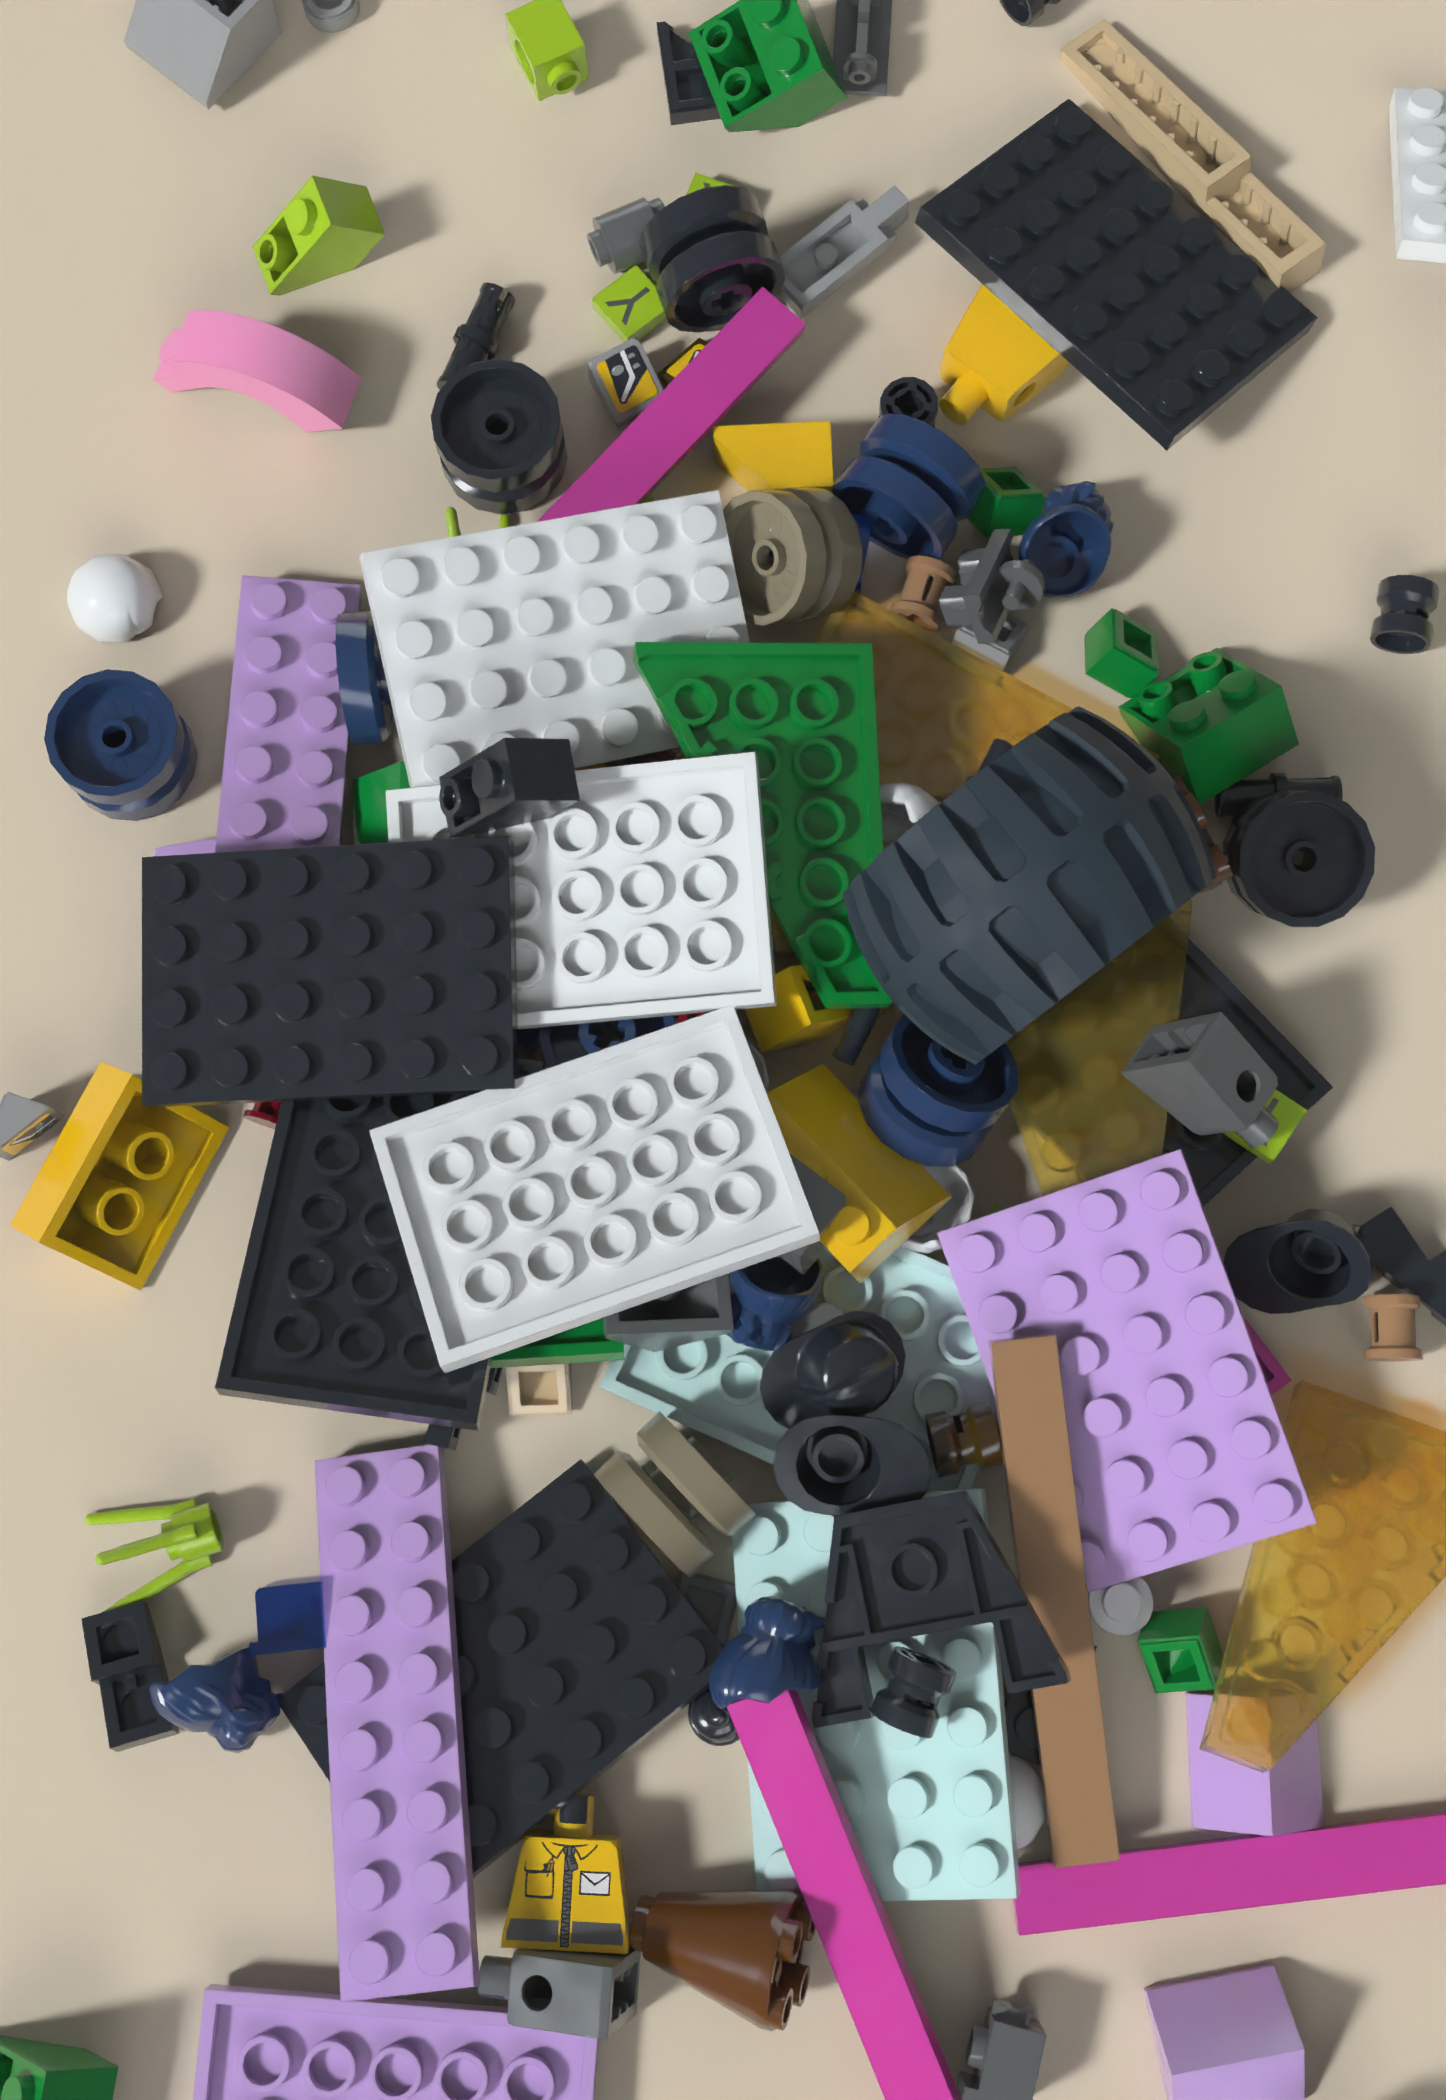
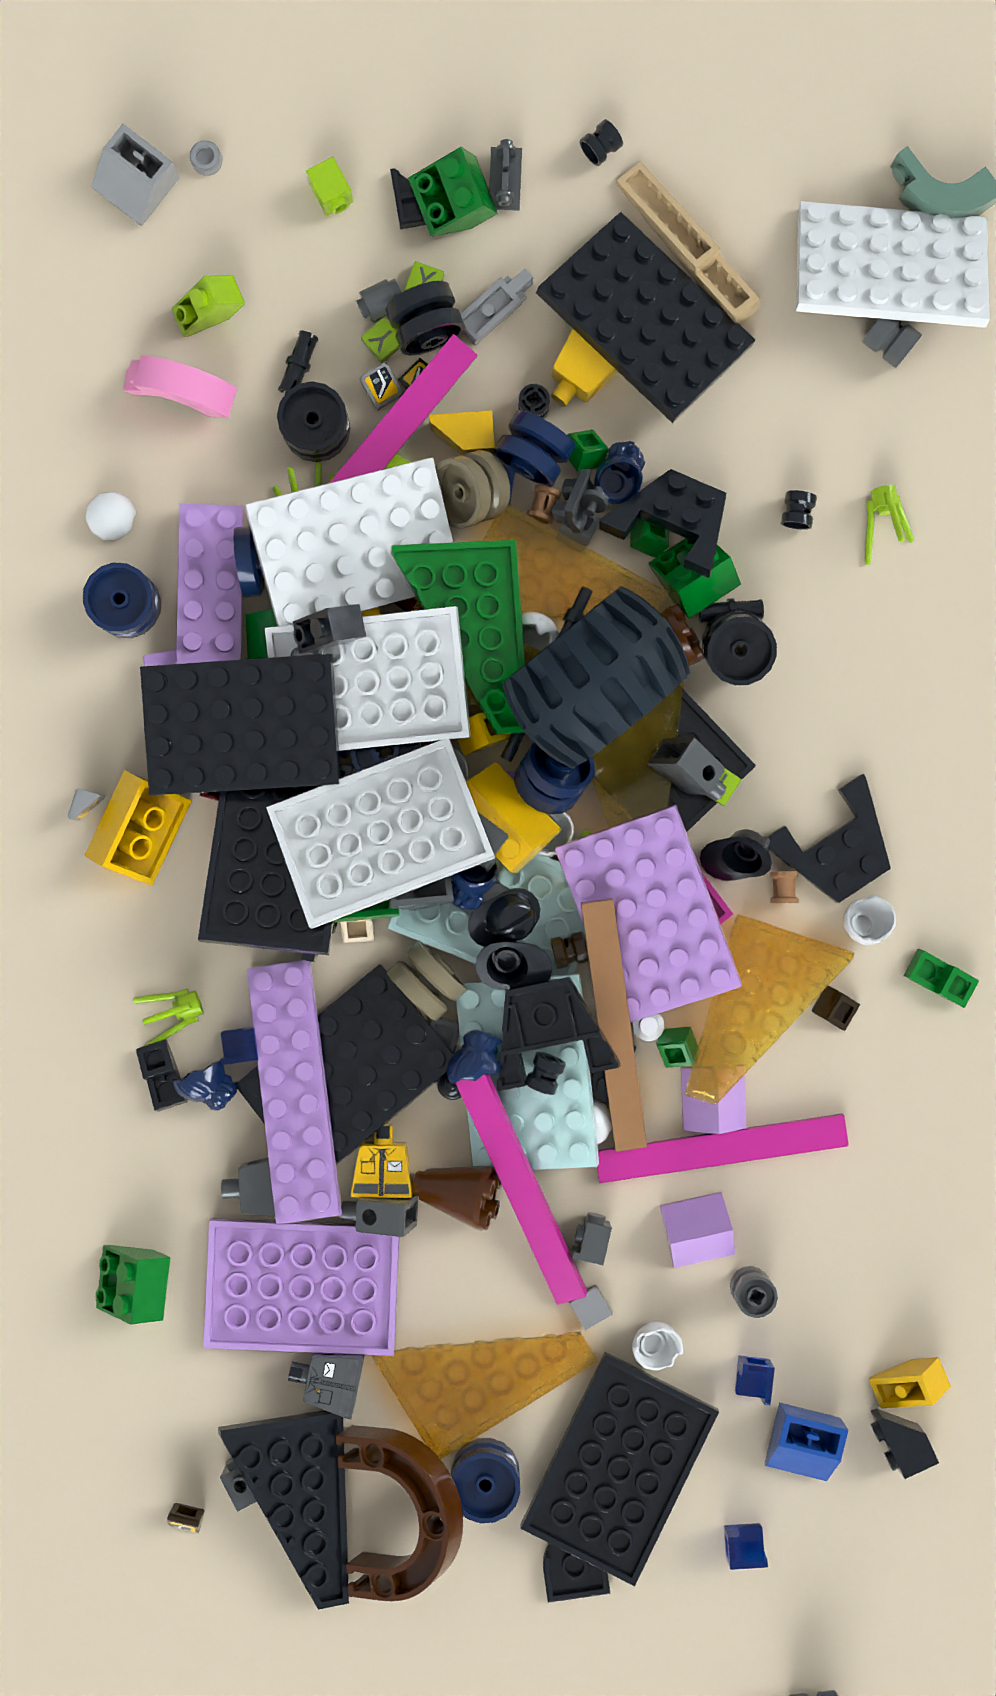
camera: 10 degrees left, 10 degrees up
(296, 1921) = (252, 1188): none -> dark grey torso
(1177, 599) = (678, 506): none -> black wing

